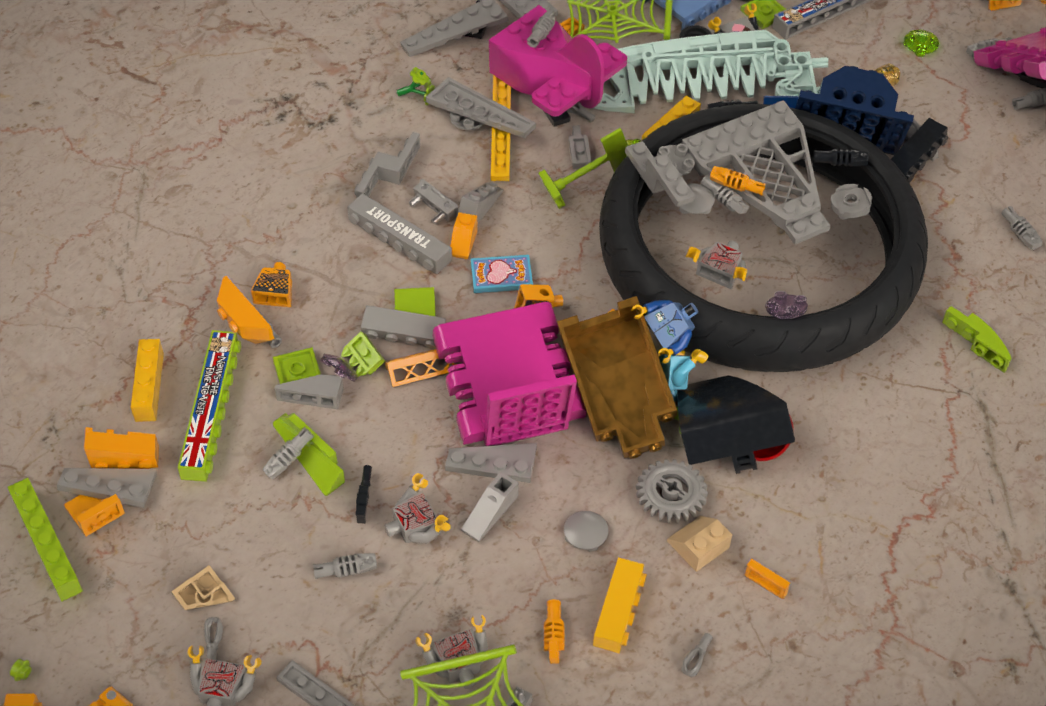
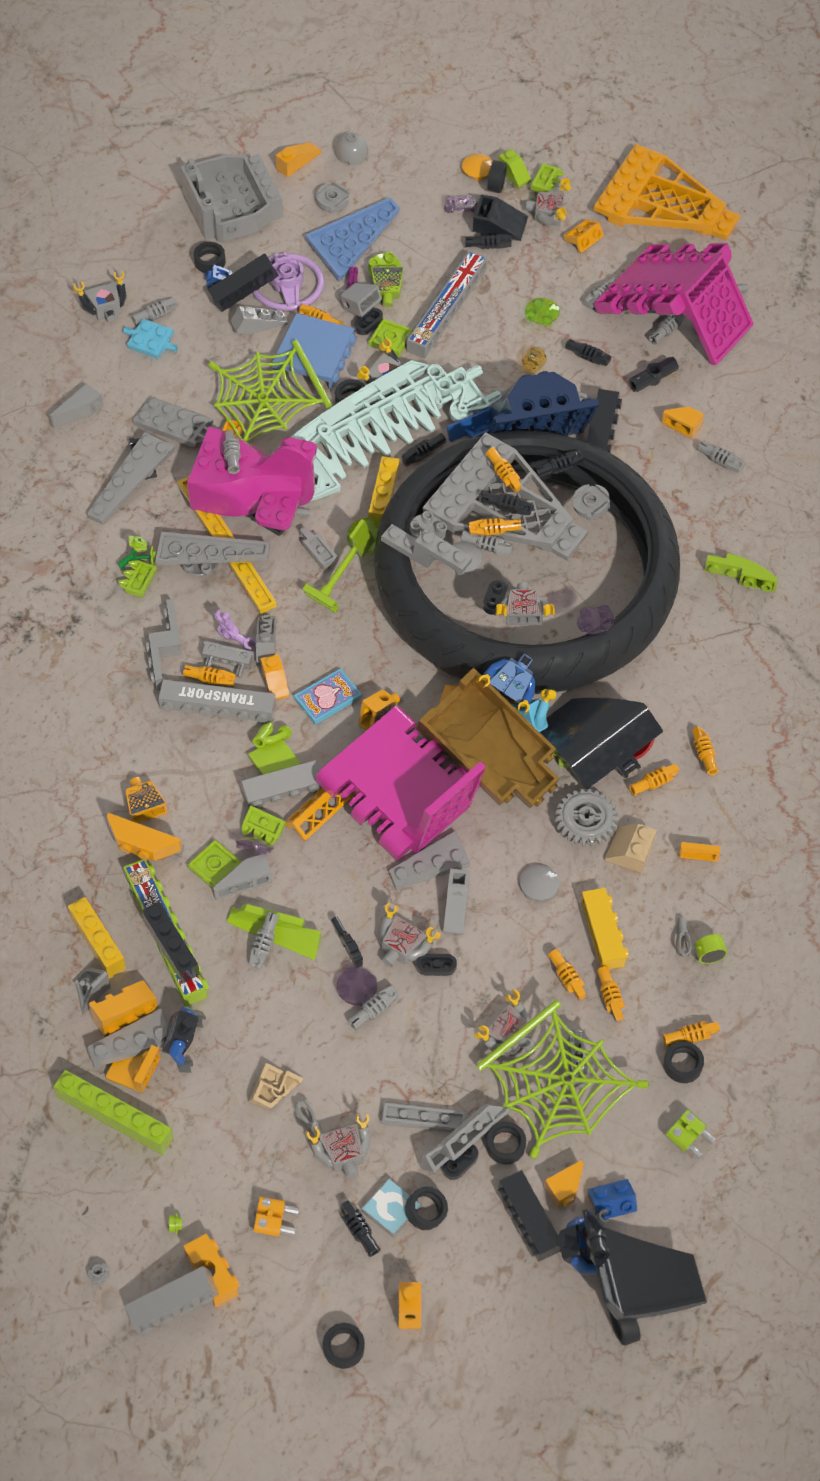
camera: 30 degrees left, 5 degrees up
(115, 419) = (91, 986): none -> light grey slope
(148, 497) = (180, 1036): none -> torso
(198, 412) = (170, 942): none -> black brick
(344, 538) = (356, 986): none -> clear purple dish
(405, 109) = (139, 578): none -> lime plate
(409, 210) = (210, 675): none -> light orange hinge
(422, 280) = (264, 735): none -> lime plant
(434, 556) = (436, 964): none -> black plate
(450, 179) = (230, 631): none -> lavender piece
(585, 673) = (611, 993): none -> light orange hinge
(701, 241) = (494, 595): none -> black plate
(716, 679) = (711, 949): none -> lime piece
(764, 167) = (507, 503): none -> black hinge
(766, 488) = (654, 779): none -> light orange hinge
(778, 136) = (504, 470): none -> light orange hinge
(835, 485) = (705, 750): none -> light orange hinge
(943, 90) = (588, 352): none -> black hinge
(996, 131) = (653, 374): none -> black piece
(1002, 182) = (683, 420): none -> light orange slope

